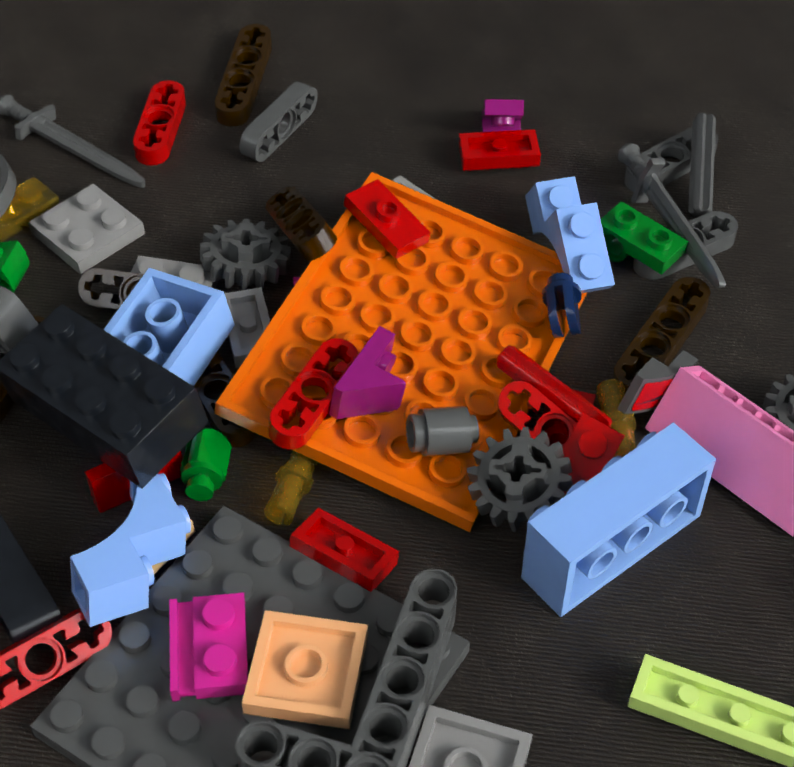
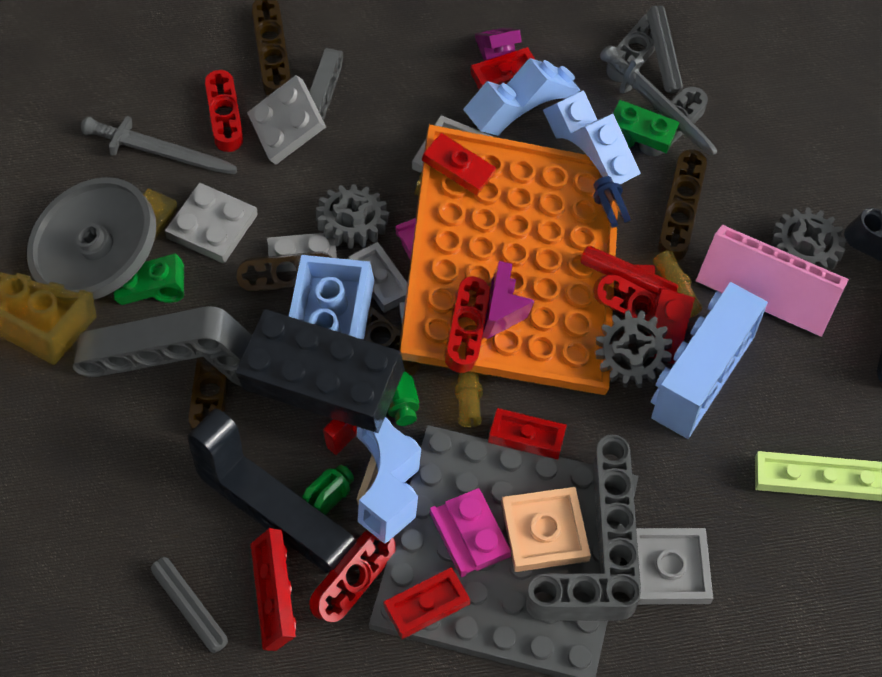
camera: 20 degrees left, 10 degrees up
(52, 546) = (329, 488): none -> green arm
(105, 717) = (426, 603): none -> red plate
(219, 141) = (286, 119): none -> light grey plate
(301, 223) = (388, 180): dark brown beam -> none
(442, 431) = (567, 328): dark grey brick -> none
(471, 177) = (535, 83): none -> light blue arch
(652, 383) = (697, 247): dark grey slope -> none

